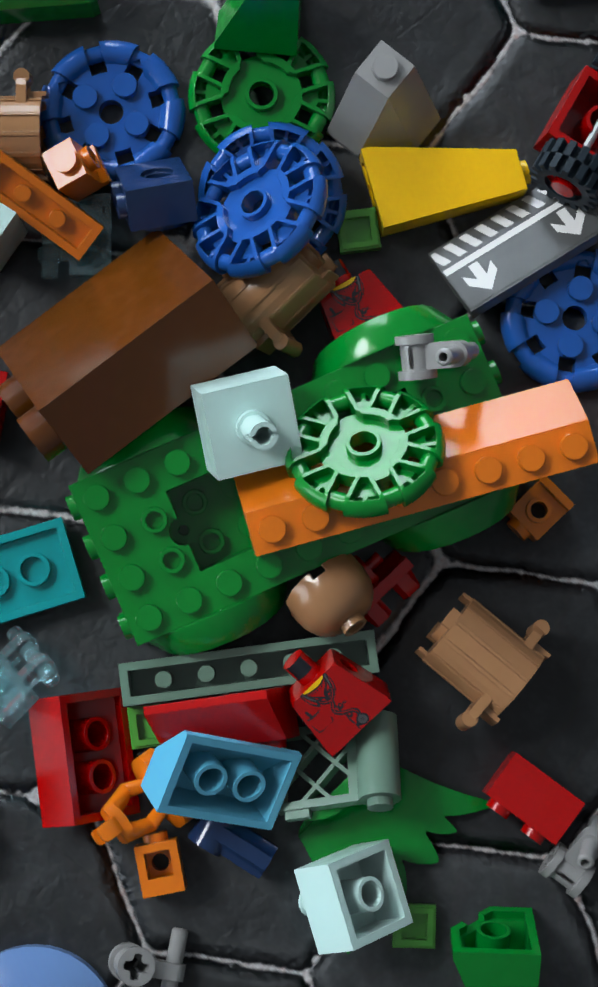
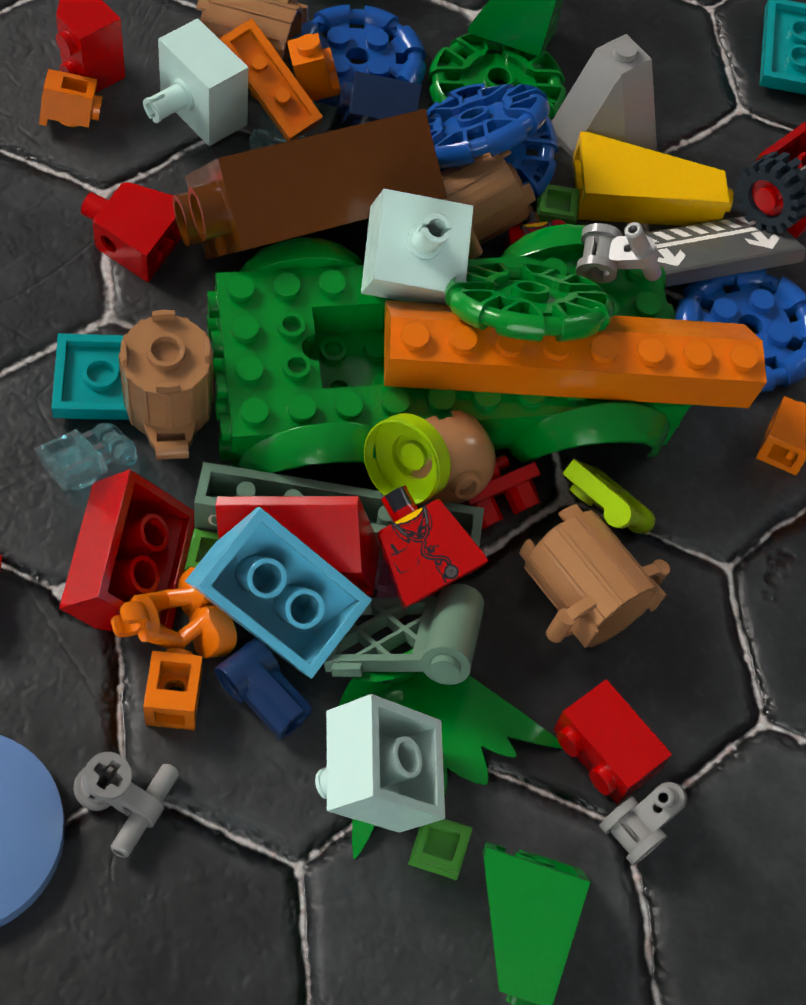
camera: 10 degrees right, 25 degrees down
(59, 596) = (167, 381): none -> medium nougat container
(289, 625) = (405, 445): none -> lime piece
(469, 562) = (619, 505): none -> lime plate
(555, 505) = (680, 471): orange brick -> none

